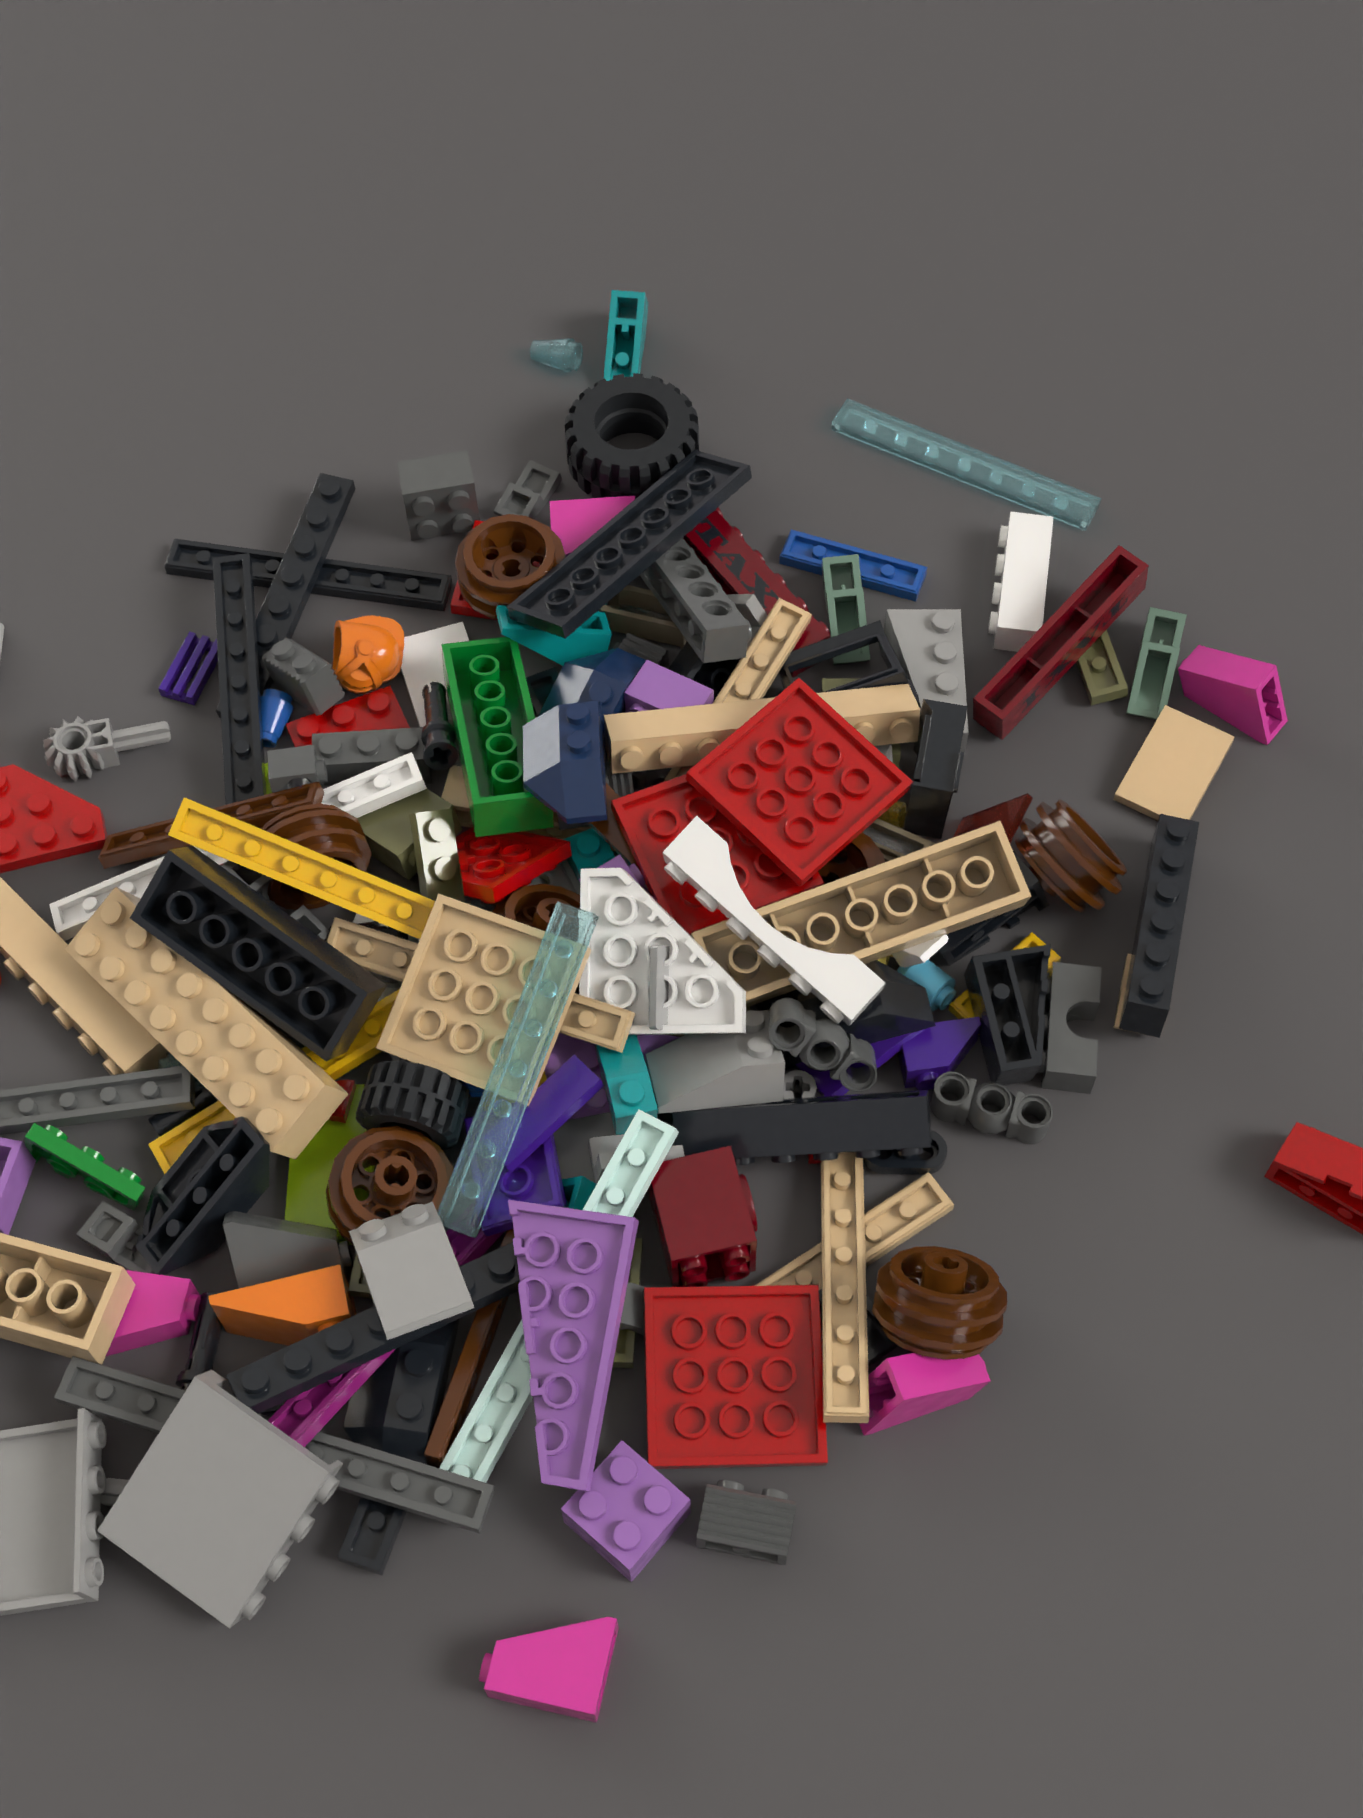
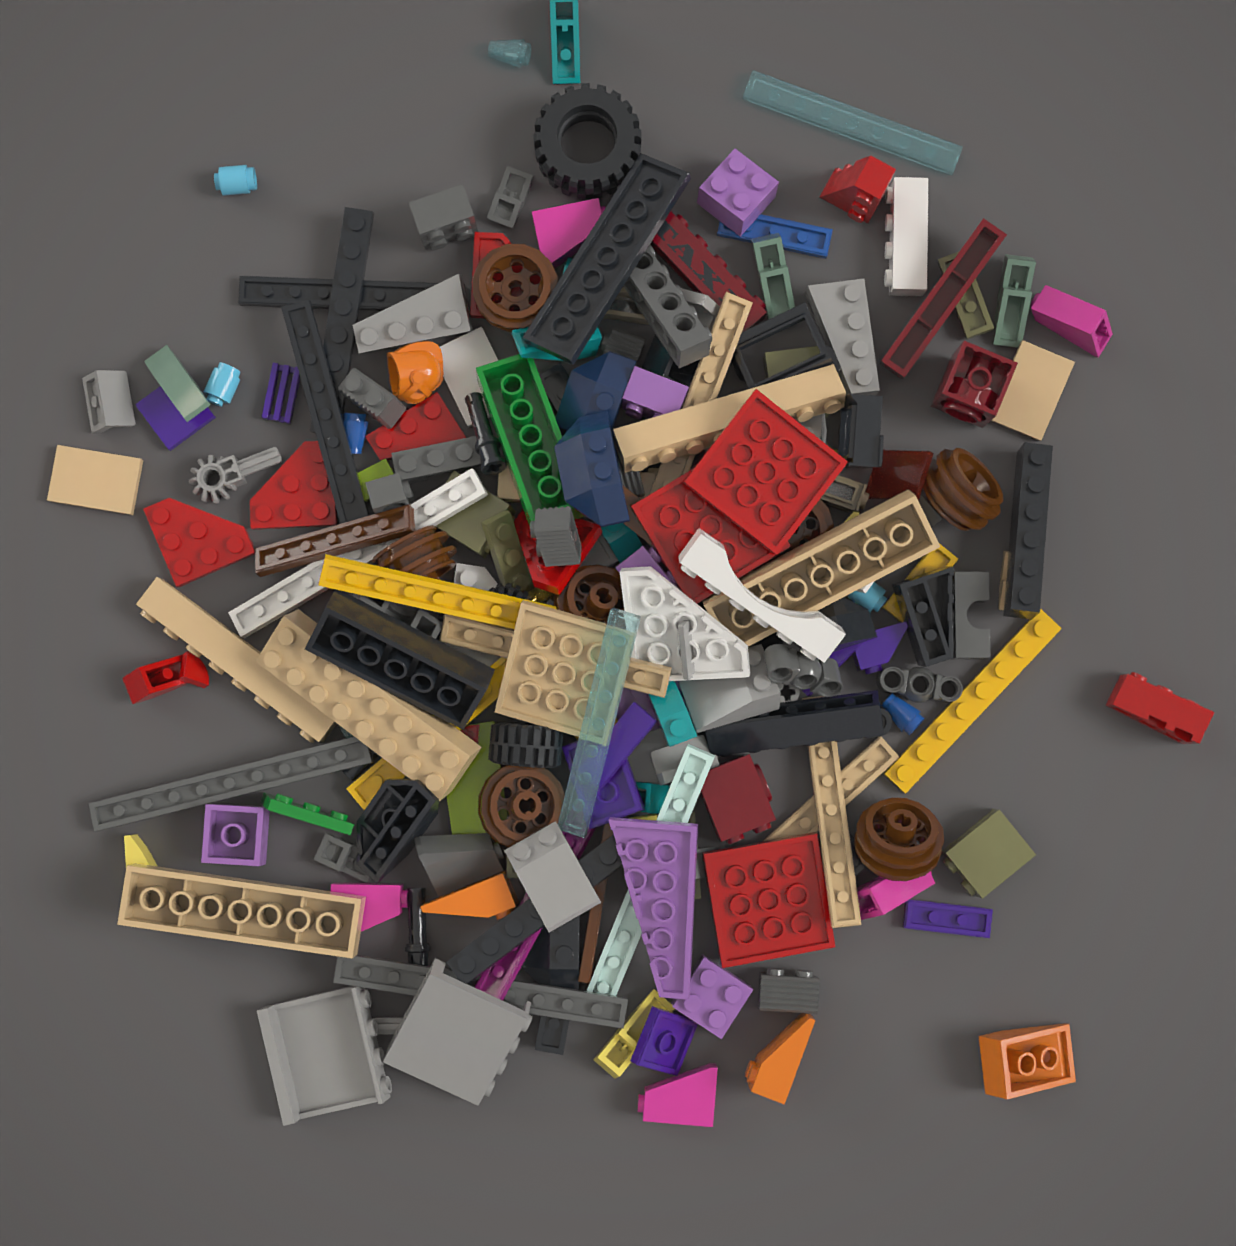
camera: 10 degrees left, 25 degrees up
(52, 673) = (168, 421): none -> dark purple tile
(60, 629) = (177, 383): none -> sand green slope
(118, 647) = (222, 384): none -> medium azure brick
(184, 768) = (296, 494): none -> red plate
(197, 441) = (235, 180): none -> medium azure brick
(403, 588) = (425, 316): none -> light grey wedge
(495, 1557) = (619, 1049): none -> light yellow slope
(504, 826) = (556, 536): none -> dark grey brick
(540, 1568) = (664, 1041): none -> dark purple tile
(712, 1622) = (778, 1062): none -> orange slope
(810, 509) = (737, 192): none -> medium lavender brick
(967, 1148) = (903, 714): none -> blue cone
(969, 515) = (859, 187): none -> red wedge
(1007, 1448) = (947, 918): none -> dark purple tile
(1065, 1145) = (973, 701): none -> yellow plate
(1074, 1355) = (987, 854): none -> olive brick
(1094, 736) = (974, 384): none -> dark red brick
(1118, 1683) = (1026, 1060): none -> orange slope

